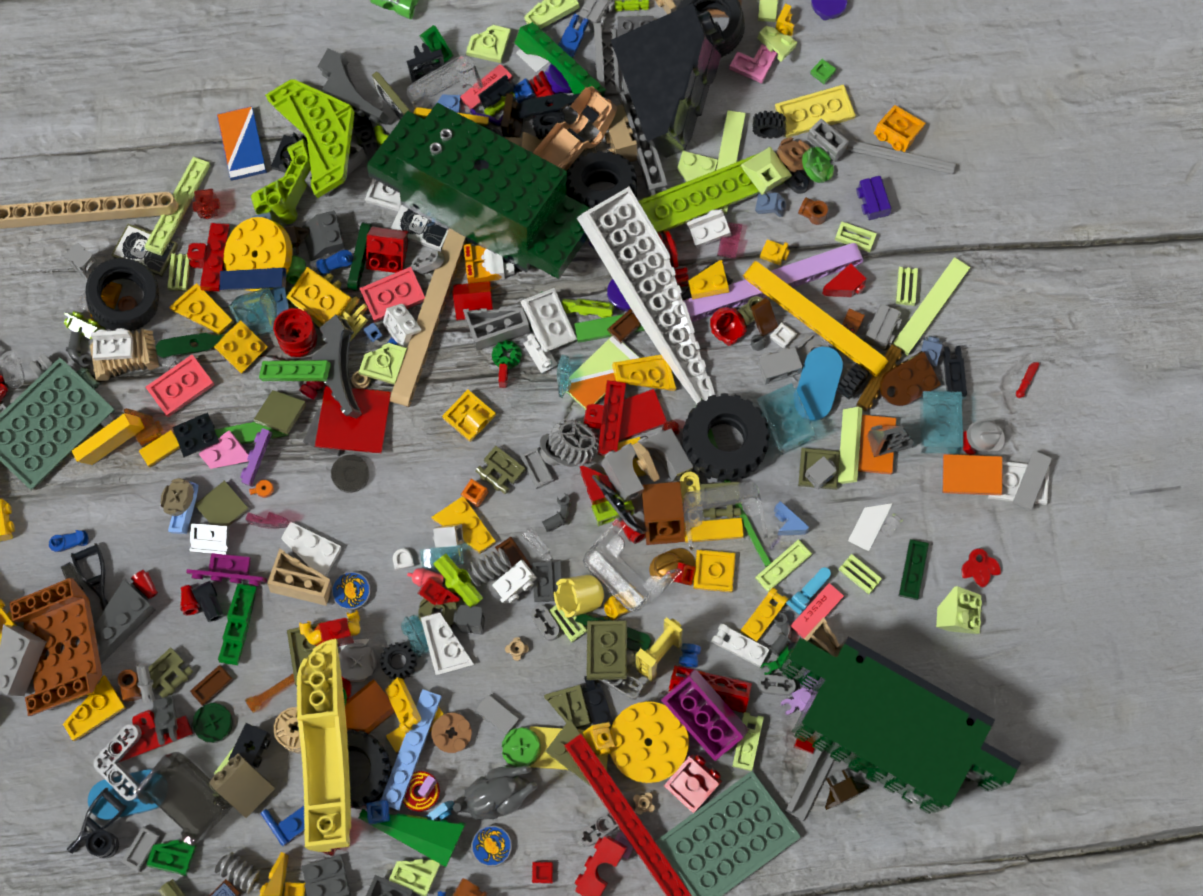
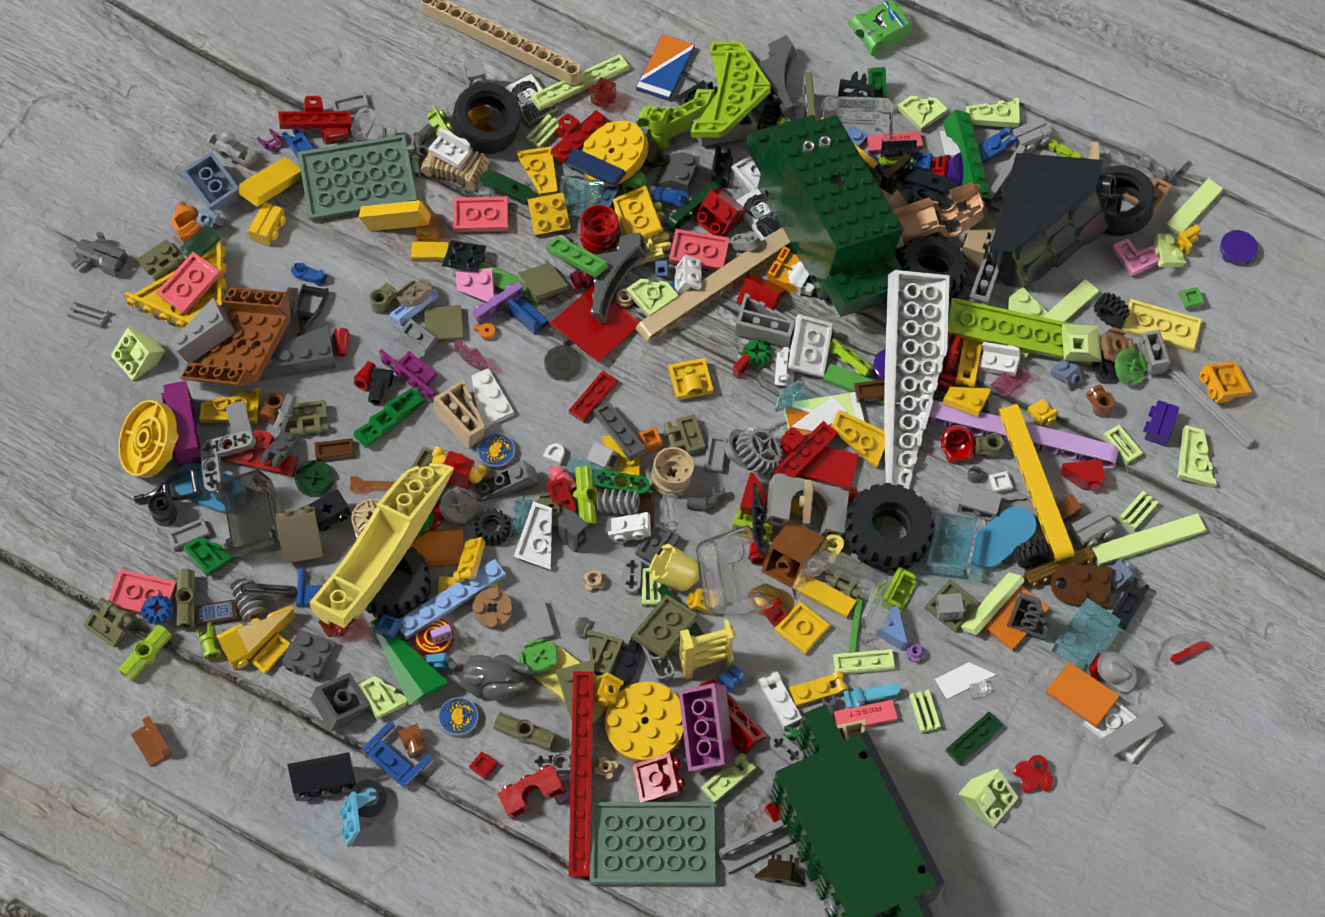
camera: 30 degrees right, 10 degrees down
(43, 793) = (147, 439): none -> yellow piece
(61, 755) = (180, 401): none -> magenta brick
(109, 717) = (238, 418): none -> light grey tile
(151, 513) = (386, 295): none -> olive piece
(251, 852) = (268, 590): none -> black axle
(288, 450) = (527, 315): none -> blue panel
(357, 206) = (721, 167): none -> black hinge
(382, 612) = (508, 482): none -> dark grey slope
(397, 486) = (593, 396): none -> red tile
(445, 504) = (619, 431): none -> dark grey plate
(463, 549) = (608, 473): none -> green beam
(509, 502) = (672, 471): none -> tan wheel
(535, 696) = (580, 626): none -> light grey piece
(542, 823) = (512, 727): none -> olive piece
(600, 373) = (825, 412): none -> white sticker
(686, 248) = (968, 362): none -> yellow plate
(764, 317) = (993, 455): reddish brown tile -> none
(769, 485) = (899, 590): none -> lime hinge
(818, 534) = (911, 655): none -> medium lavender plate
(920, 213) = (1194, 459): none -> yellowish green wing

